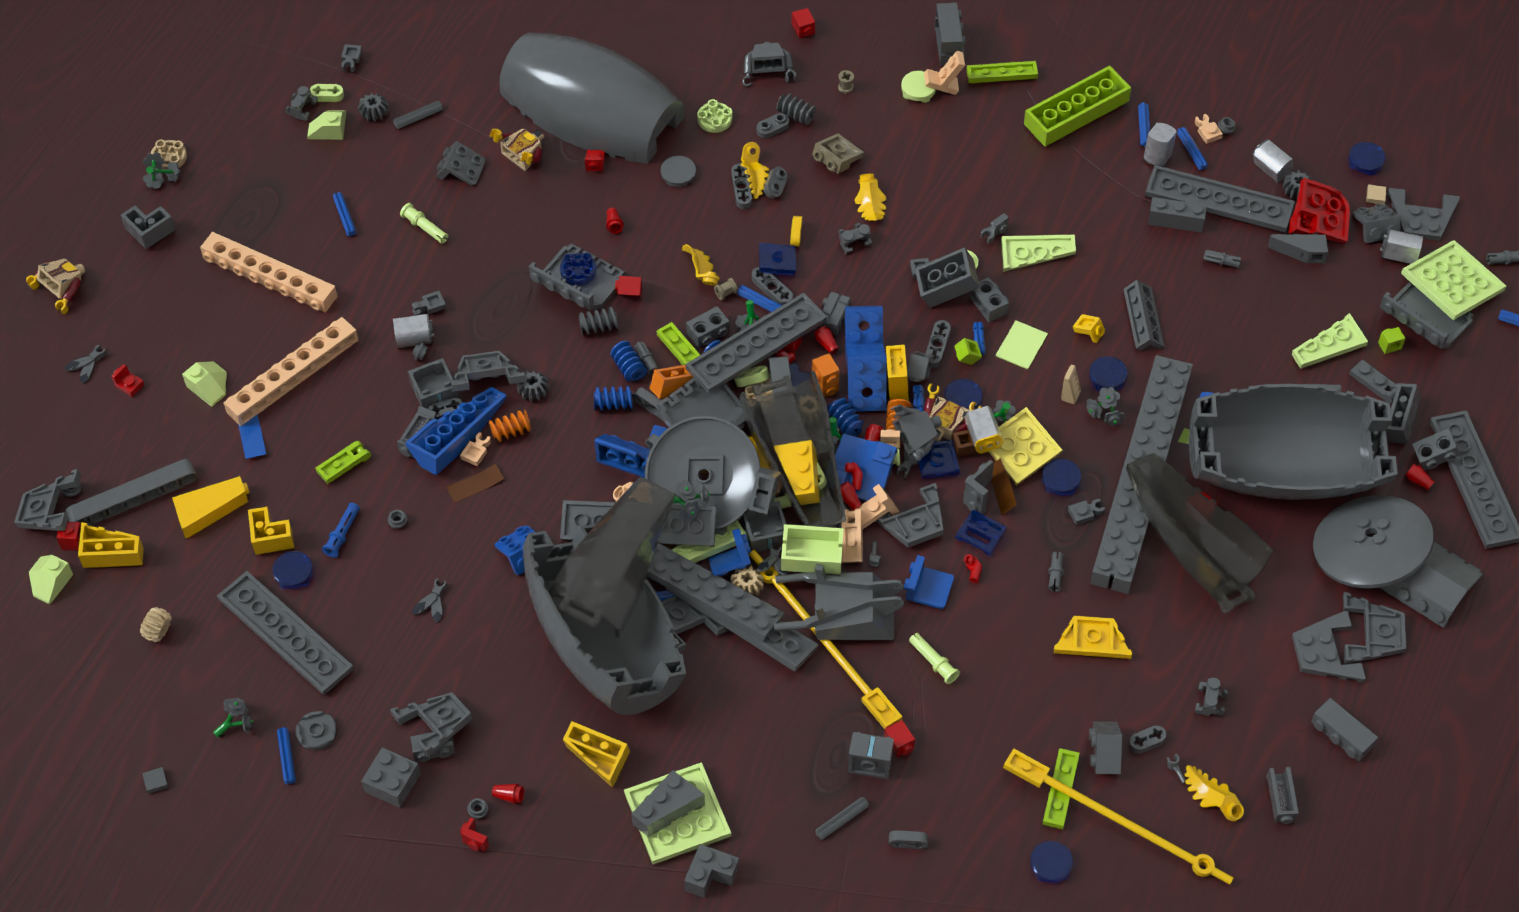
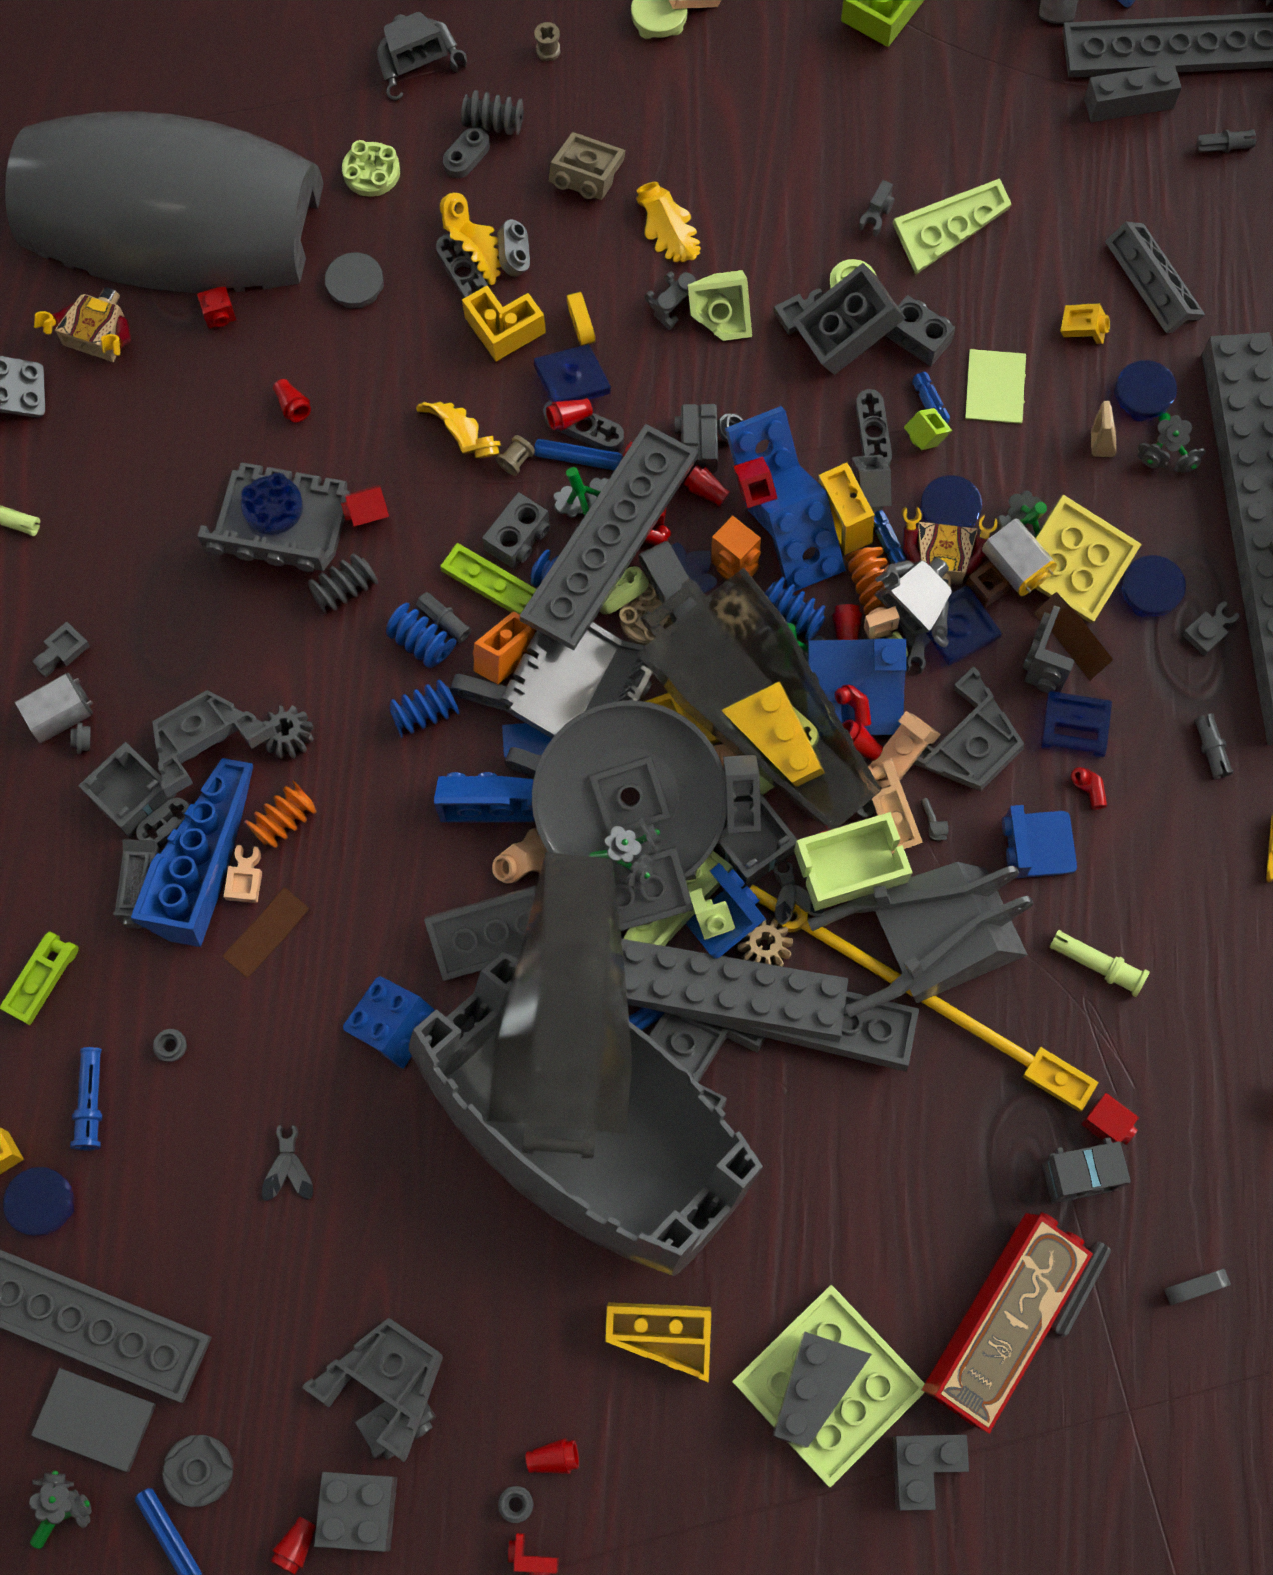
camera: 20 degrees left, 15 degrees up
(273, 686) = (94, 1420): none -> dark grey tile
(348, 785) = (294, 1546): none -> red cone
(721, 552) = (712, 918): none -> yellowish green bracket
(751, 220) = (504, 327): none -> yellow brick
(764, 275) = (567, 413): none -> red cone
(791, 814) = (1008, 1321): none -> brick
(849, 340) = (755, 482): none -> red brick
(880, 249) = (722, 304): none -> yellowish green slope

